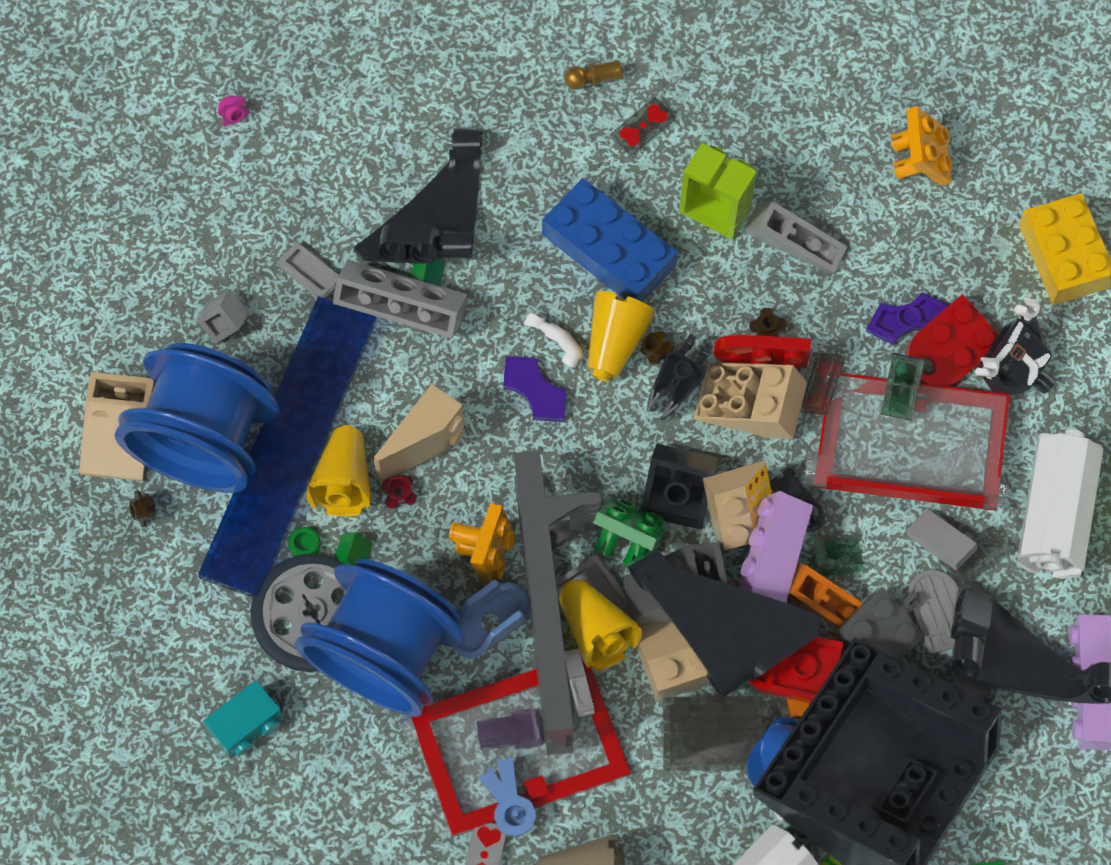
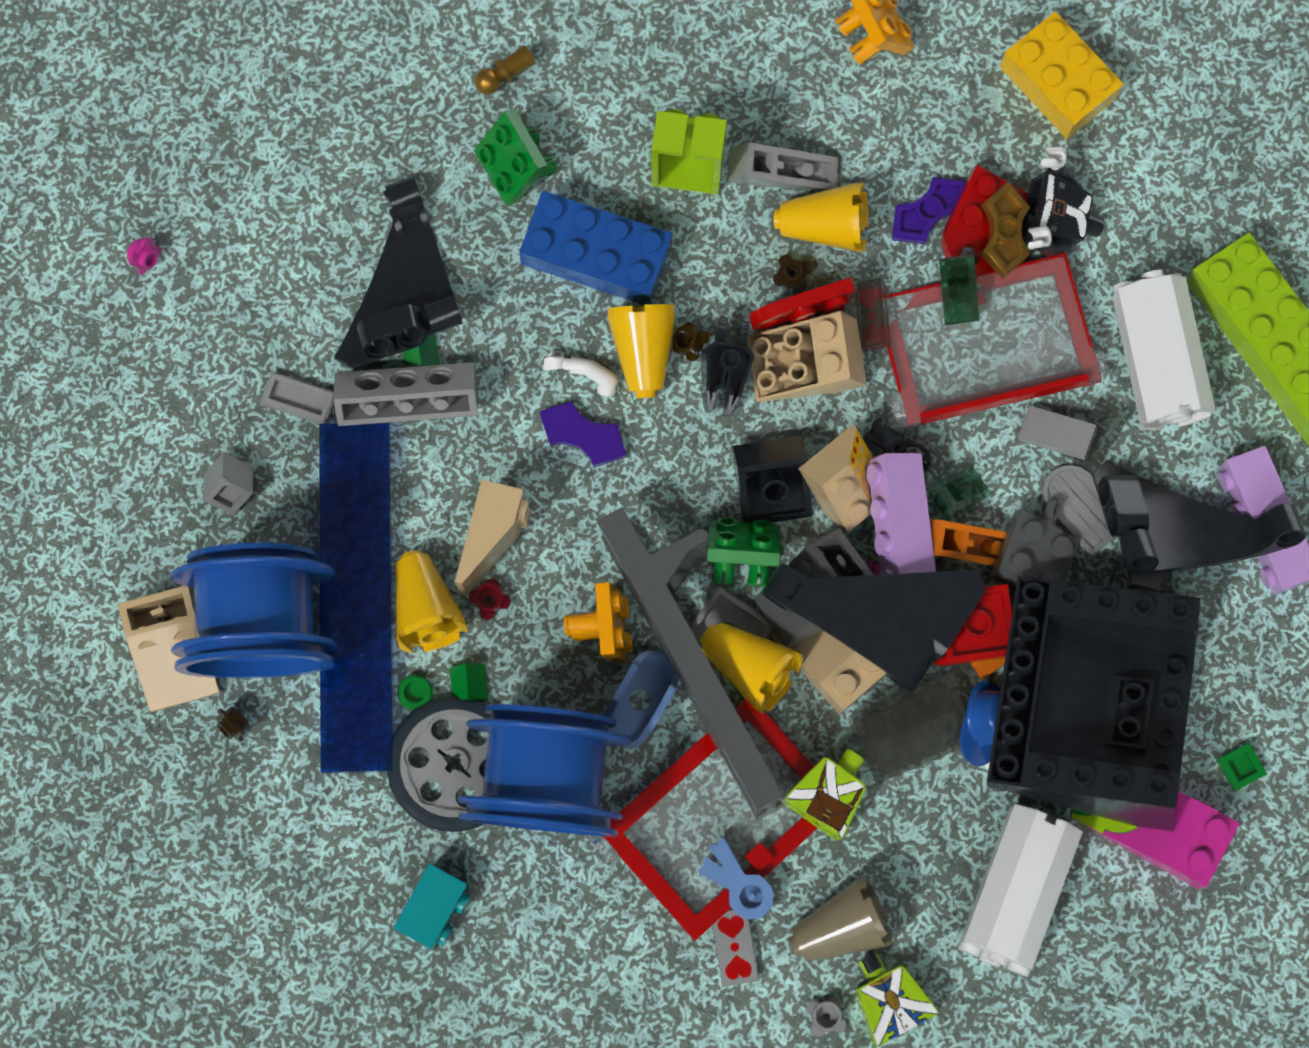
camera: 20 degrees left, 10 degrees up
(520, 730) = (716, 807): clear purple piece -> none
(570, 144) = (512, 157): none -> green plate
(578, 683) = (759, 733): white piece -> none
(616, 756) = (829, 794): none -> torso
(643, 127) = (578, 108): clear smoke tile -> none
(816, 289) = (827, 217): none -> yellow cone
(959, 368) = (1005, 242): none -> pearl gold tile

